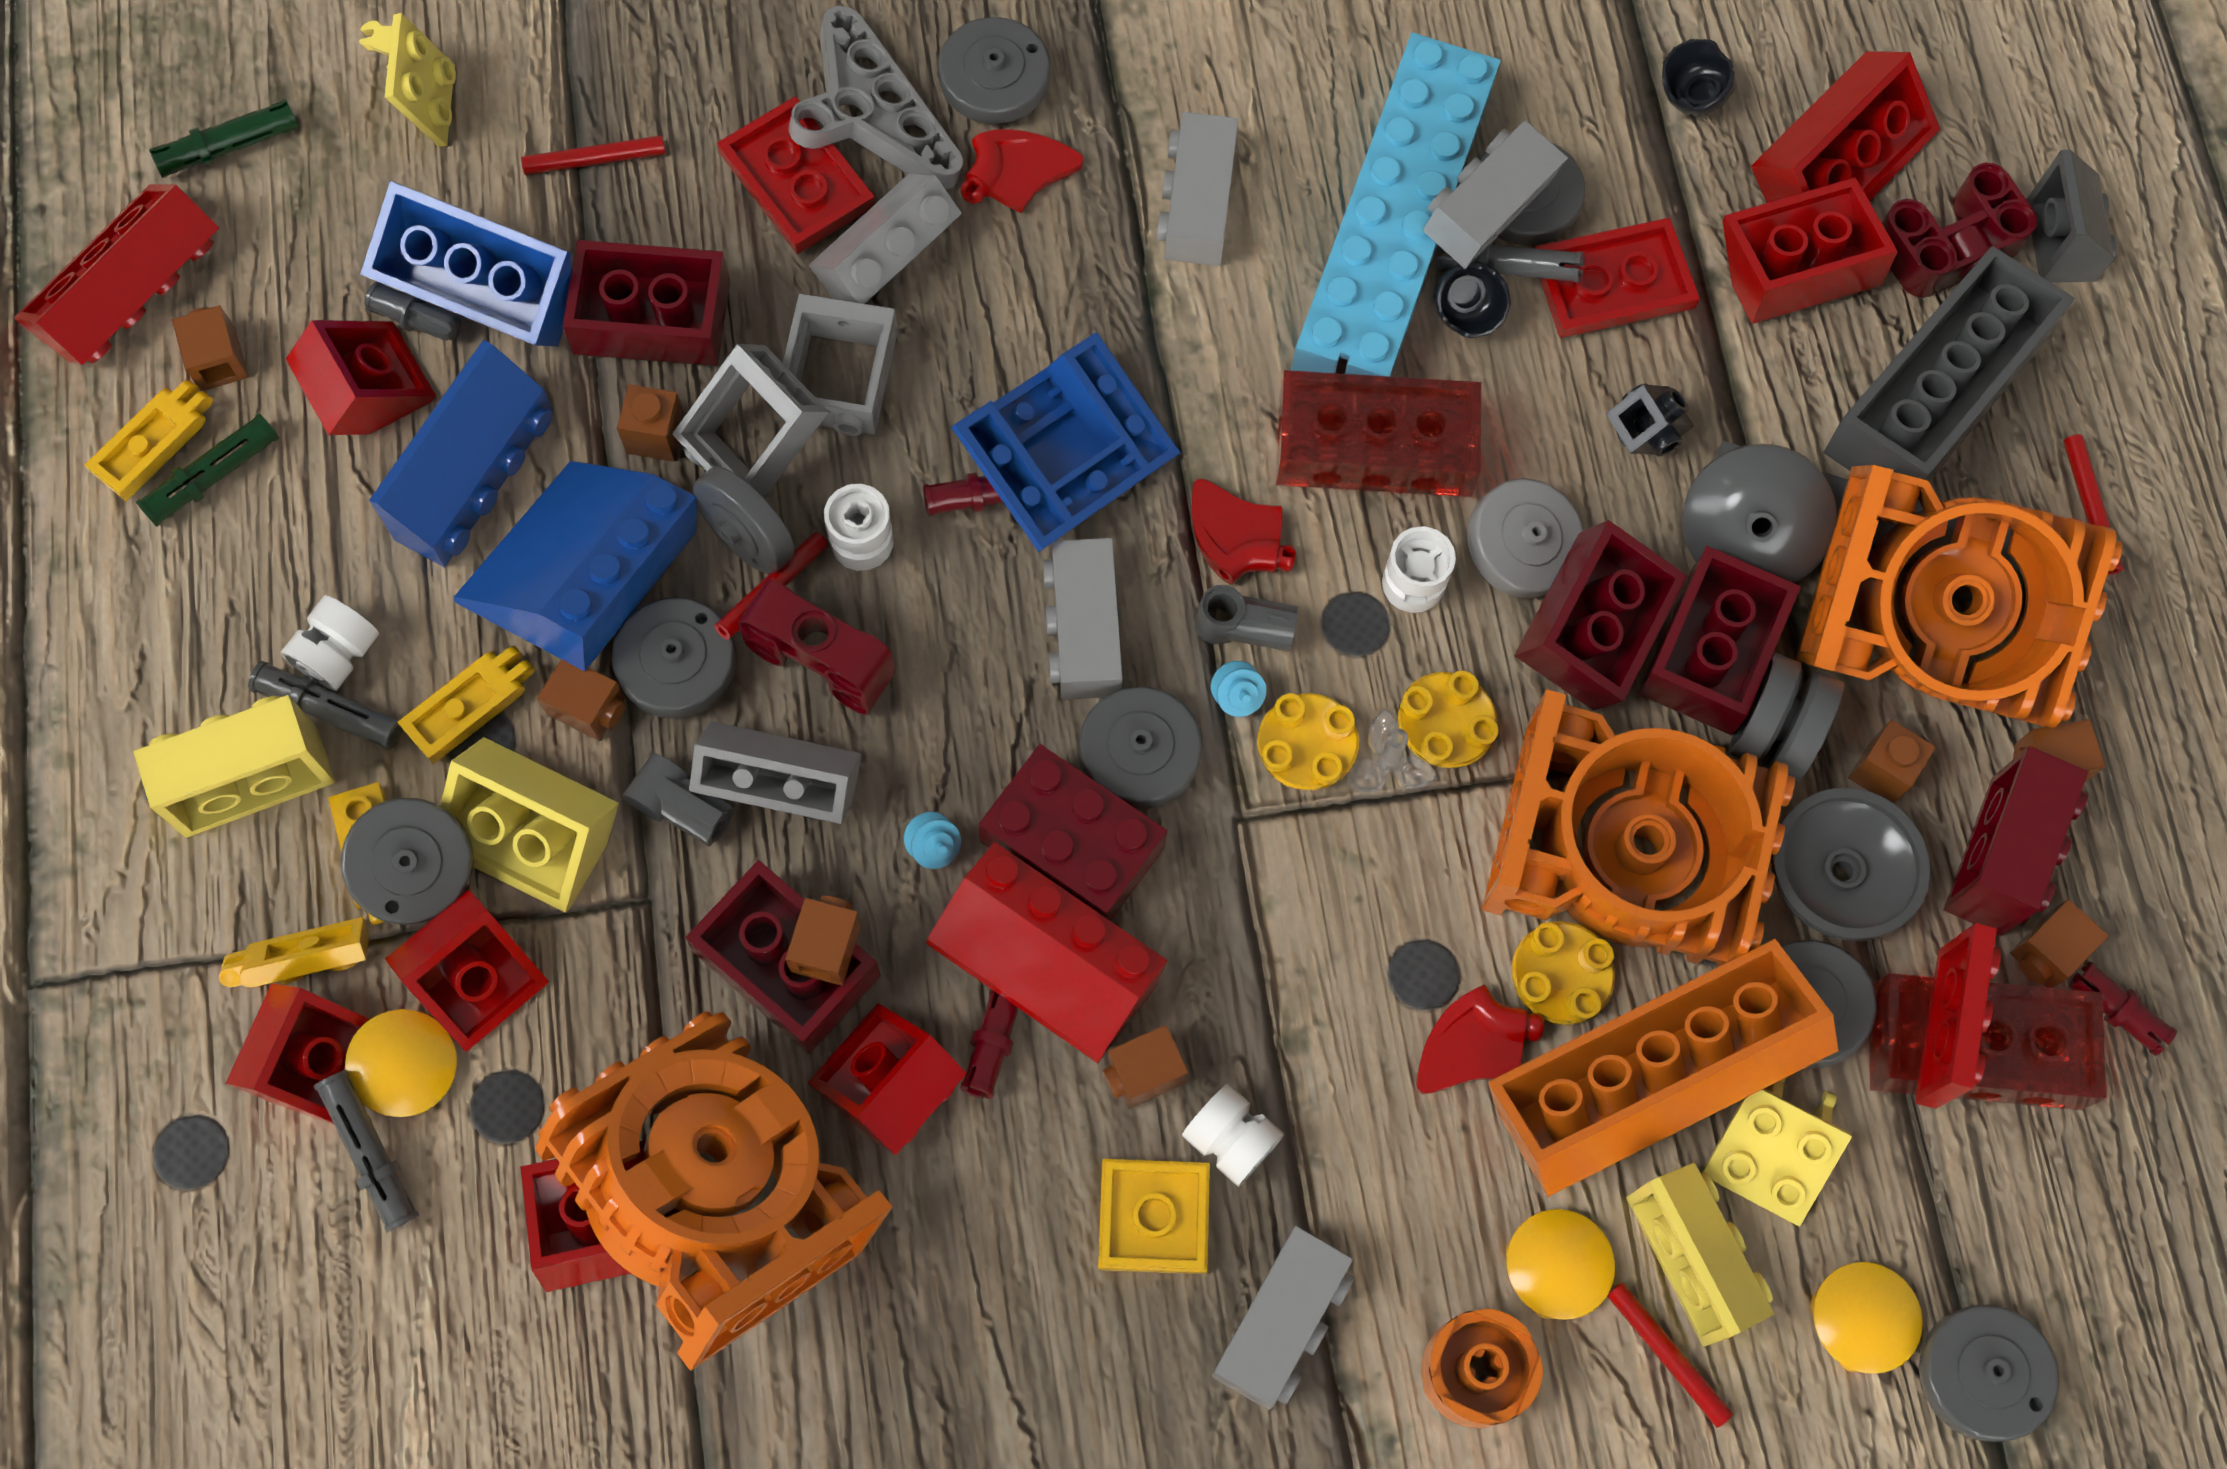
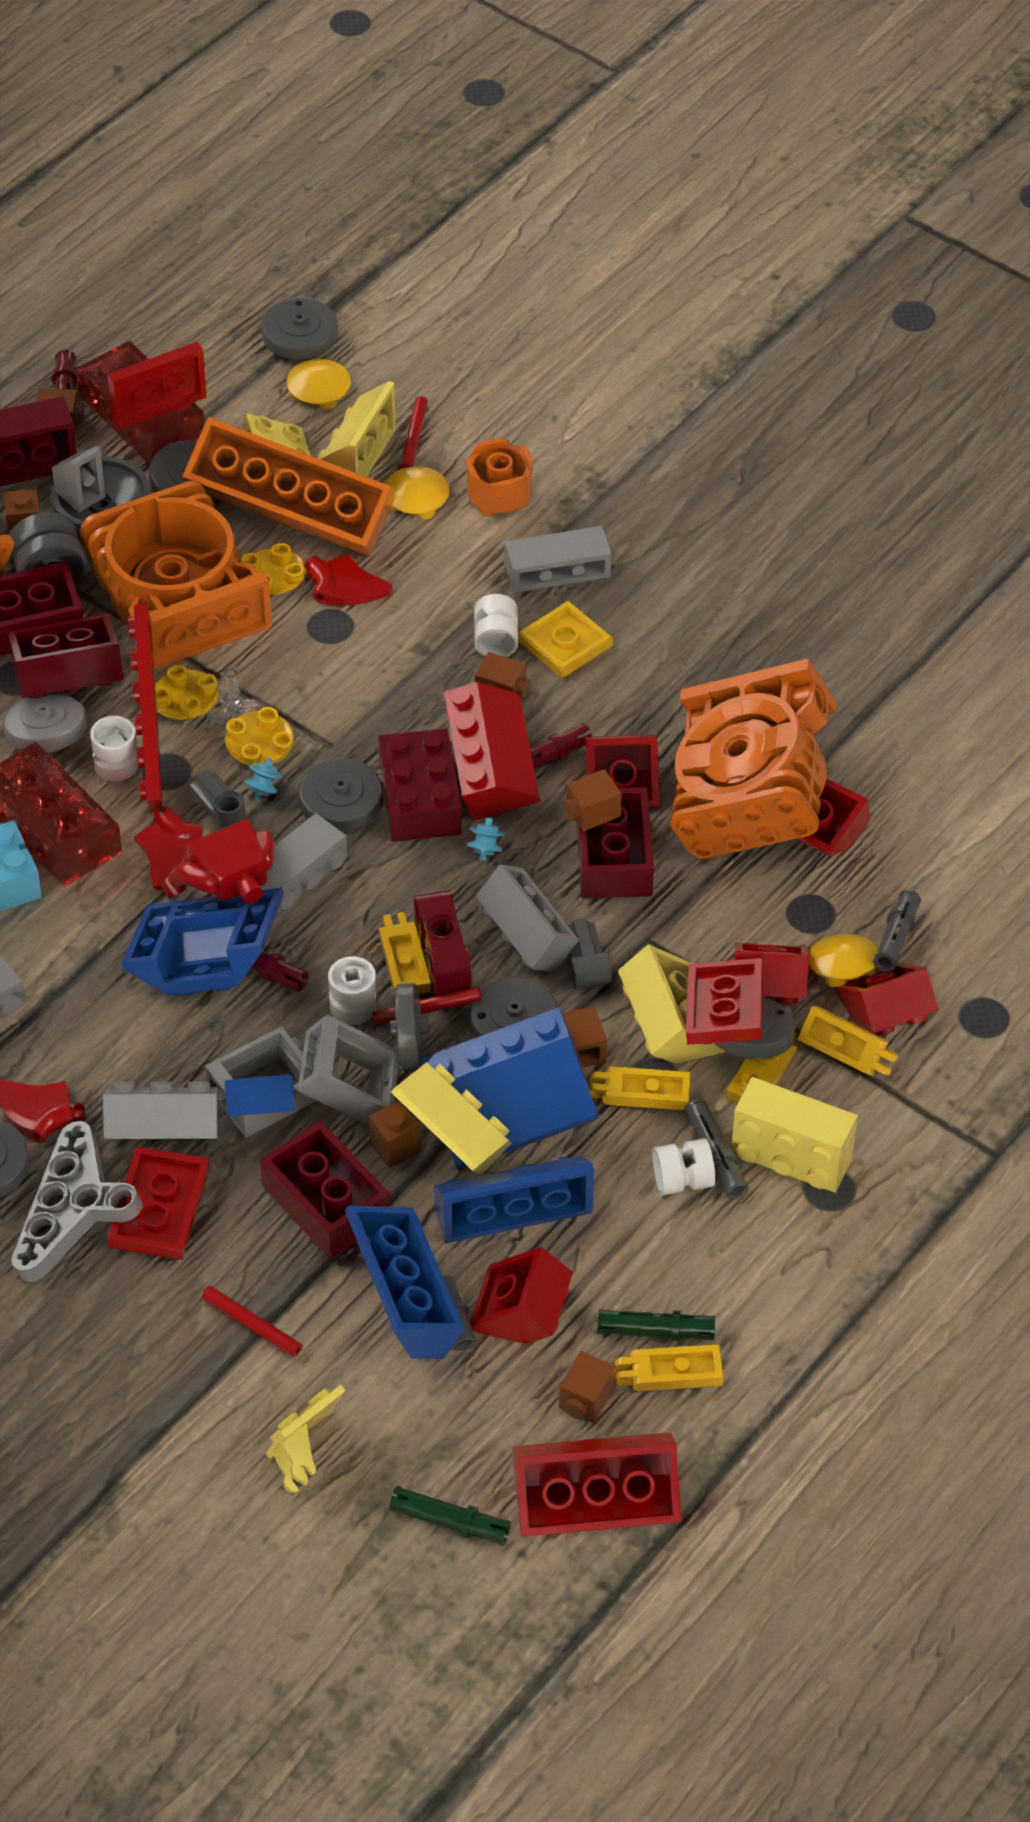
camera: 130 degrees left, 20 degrees down
(433, 830) = (724, 1001): none -> red plate
(580, 441) = (453, 1116): none -> light yellow slope
(807, 325) = (259, 1095): none -> blue sticker
(866, 615) = (404, 953): none -> yellow hinge
(1117, 523) = (225, 864): none -> red torso
(1437, 621) = (145, 694): none -> red plate
(1876, 823) = (80, 479): none -> light grey slope

